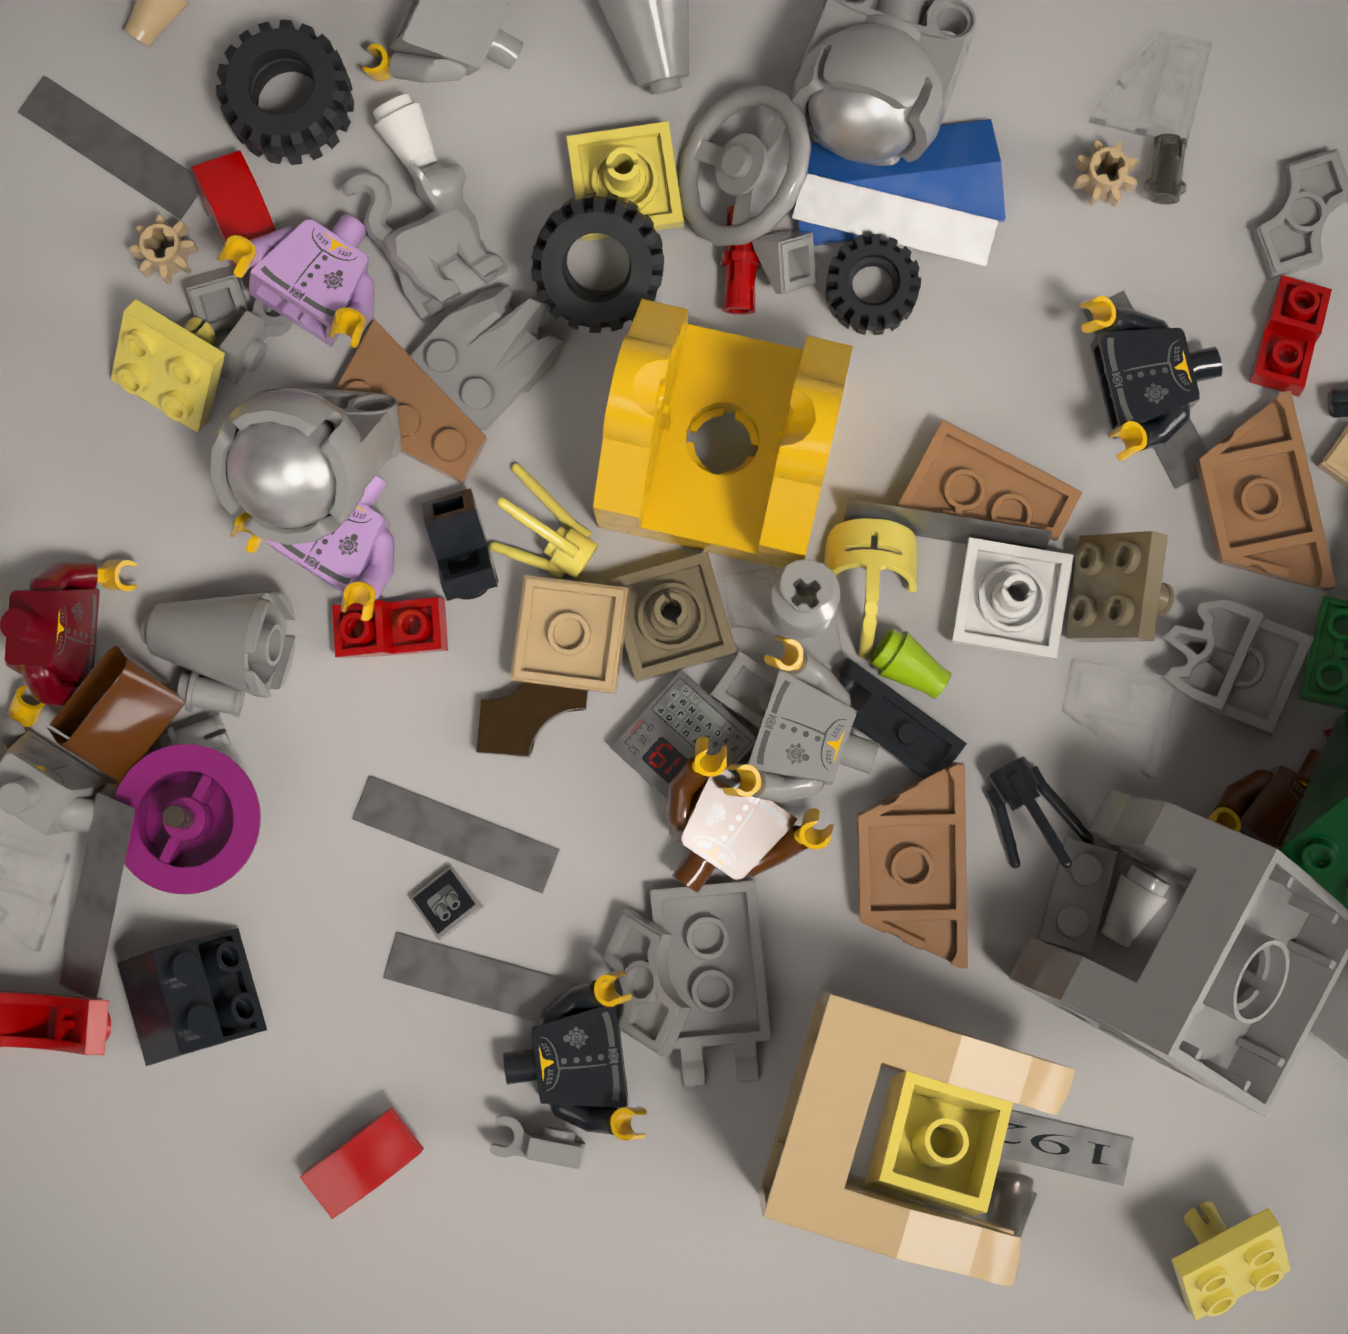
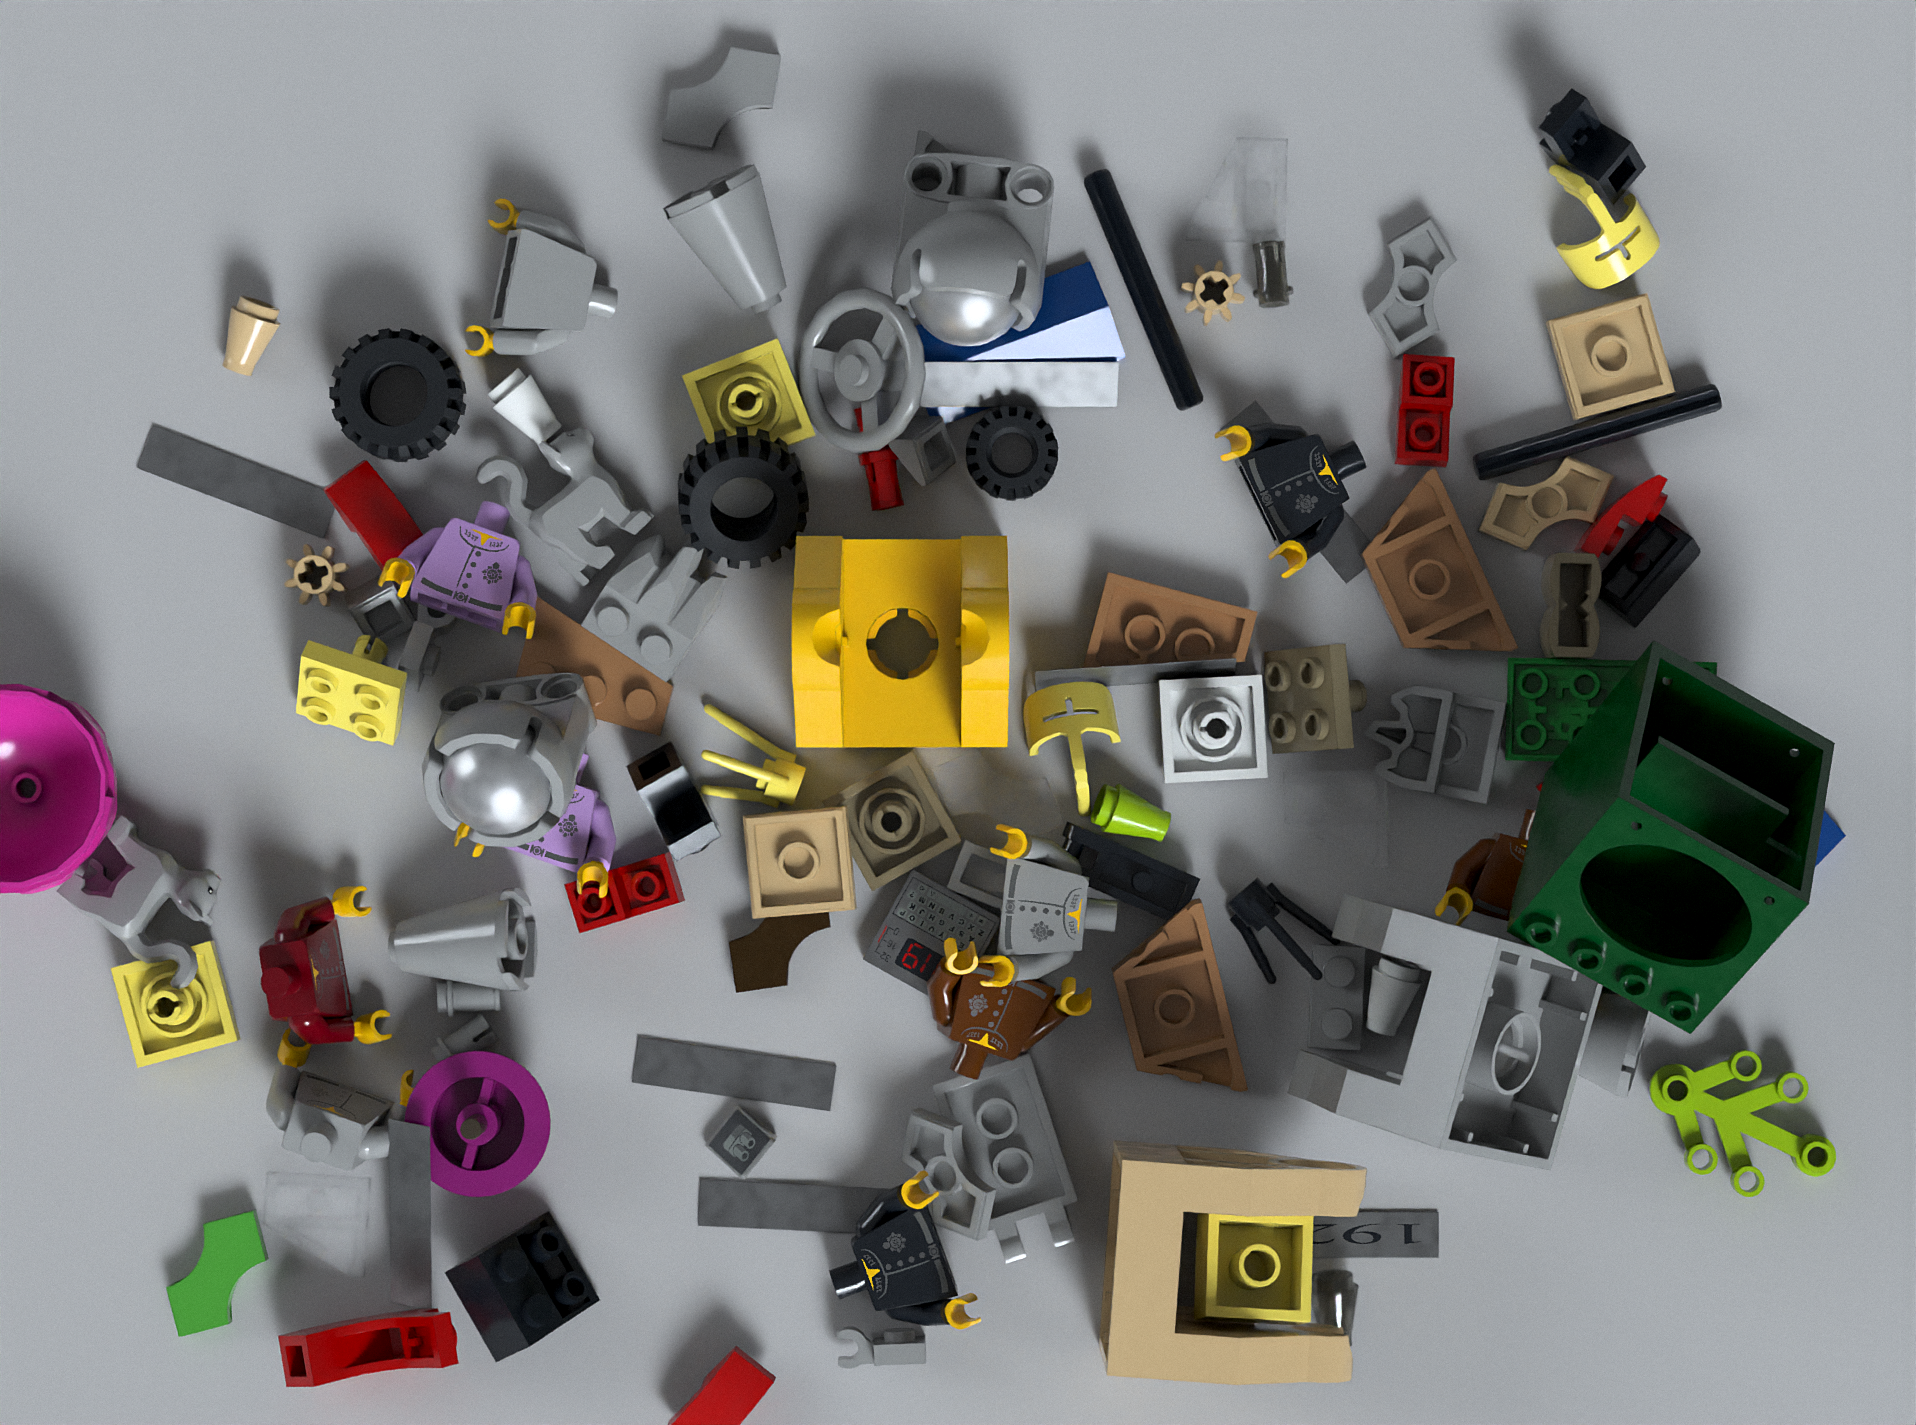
camera: 20 degrees left, 5 degrees up
(116, 714) = (386, 1039): reddish brown piece -> none
(805, 578) = (1036, 781): light grey piece -> none
(1037, 157) = (1143, 289): none -> black axle
(1229, 1260) = (1548, 1306): light yellow plate -> none

